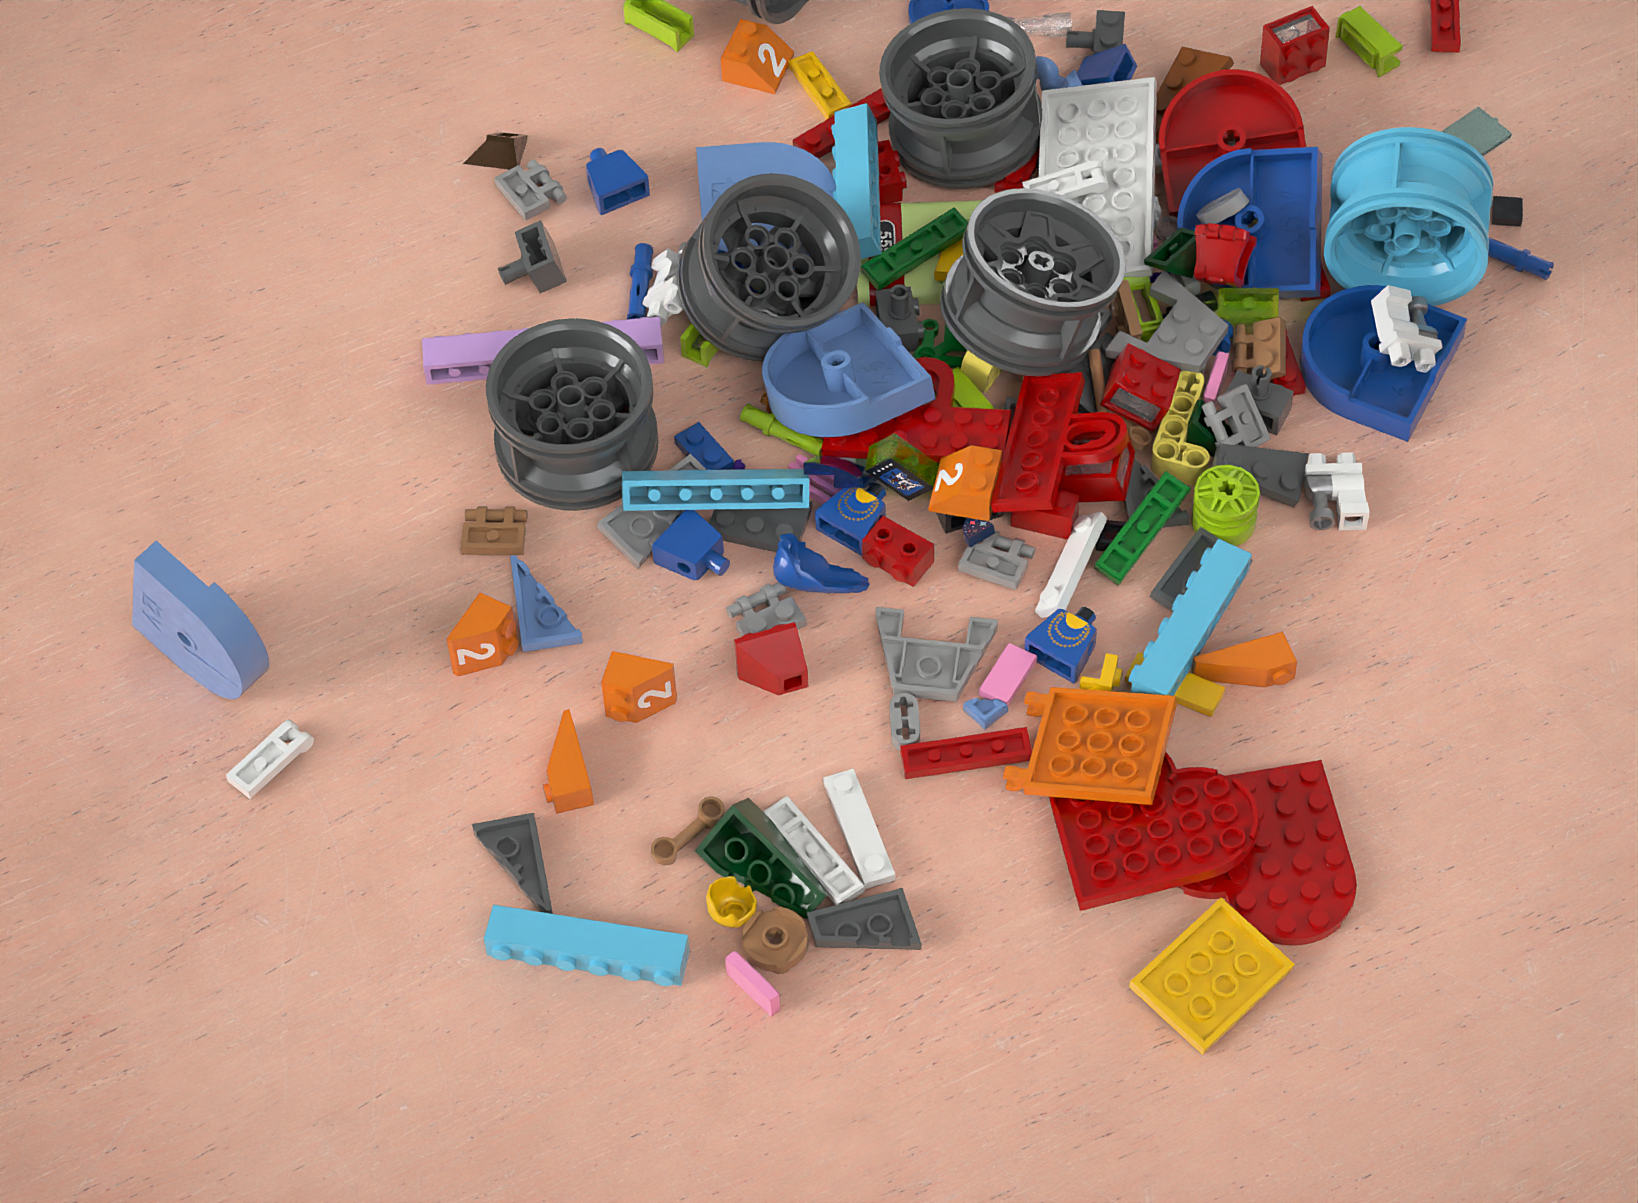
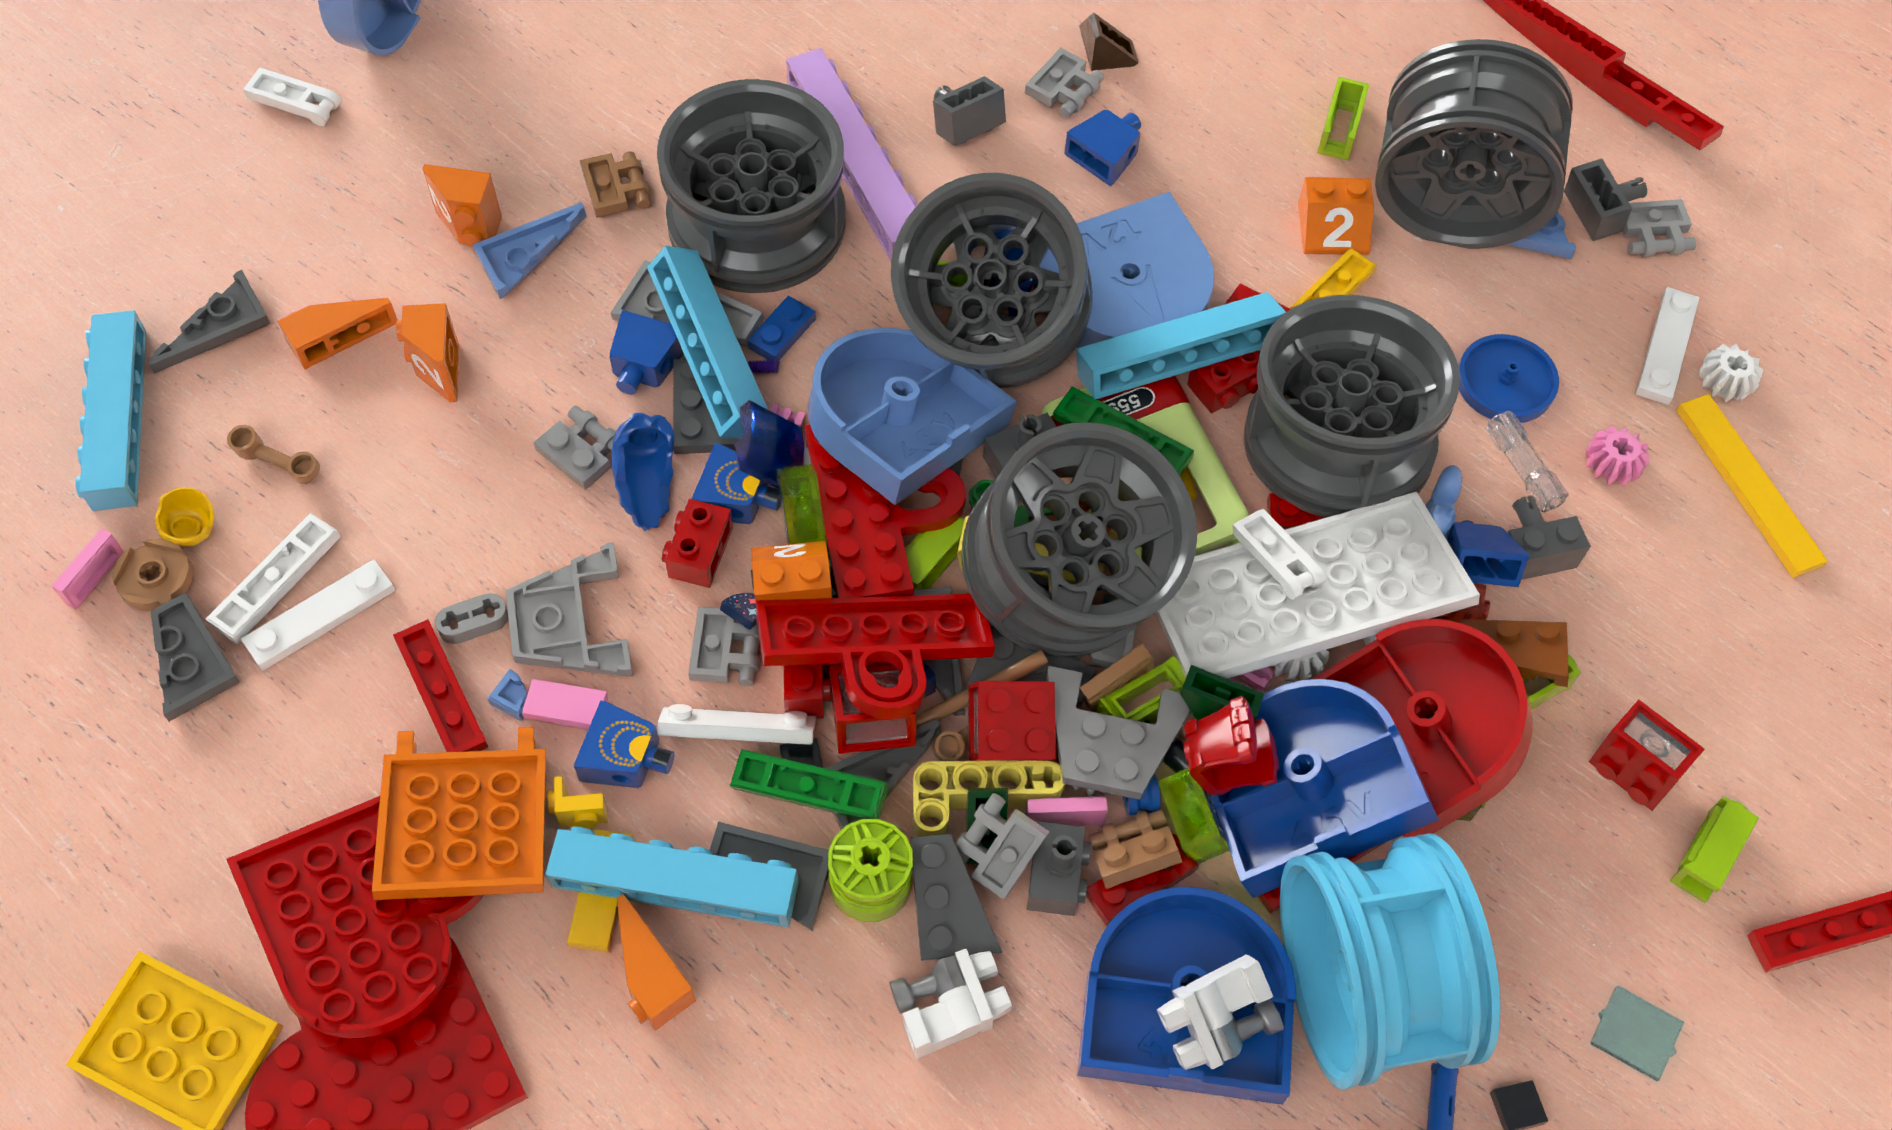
camera: 65 degrees right, 5 degrees up
(758, 855) = (266, 513): dark green wedge -> none
(772, 659) = (505, 464): red slope -> none
(1223, 207) = (1312, 731): light grey beam -> none

